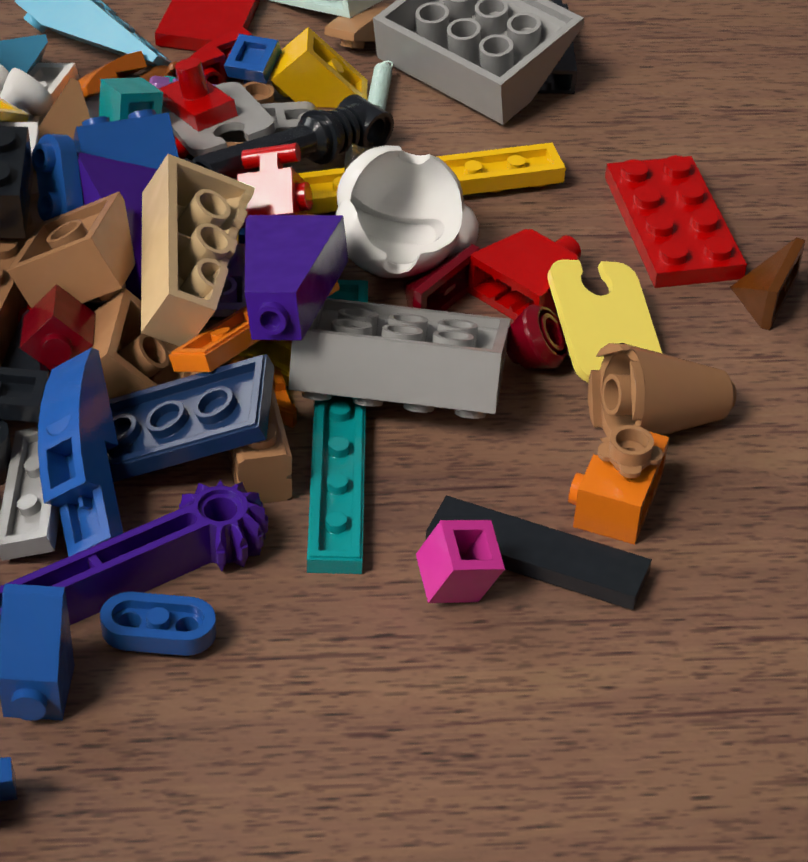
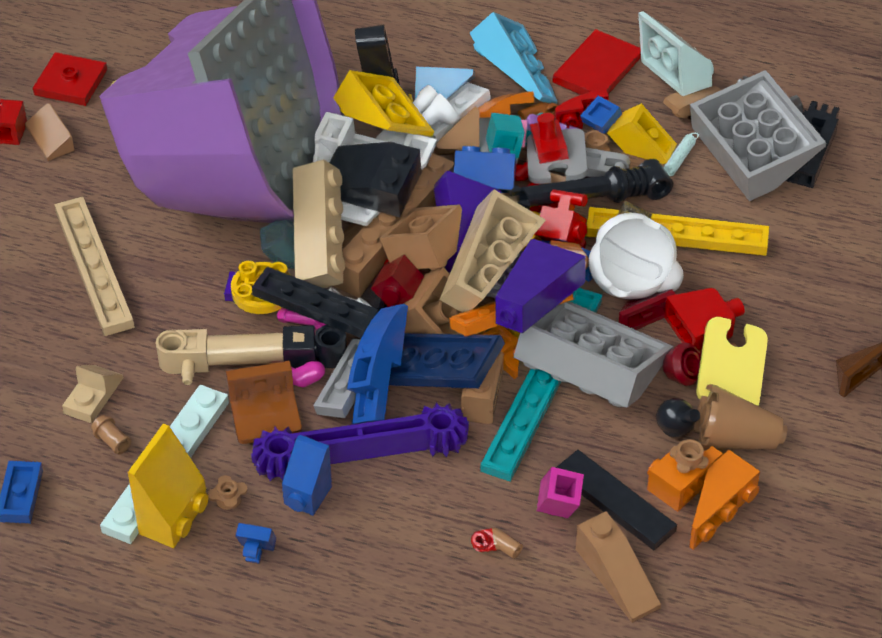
camera: 25 degrees right, 5 degrees up
(57, 175) = (432, 183): blue plate -> none
(158, 623) = (384, 477): blue plate -> none
(388, 665) = (495, 539): none -> arm
(570, 410) = (676, 417): none -> black piece
(596, 645) = (616, 566): none -> medium nougat slope
(674, 222) = (823, 303): red plate -> none
(689, 499) = (725, 488): none -> orange slope

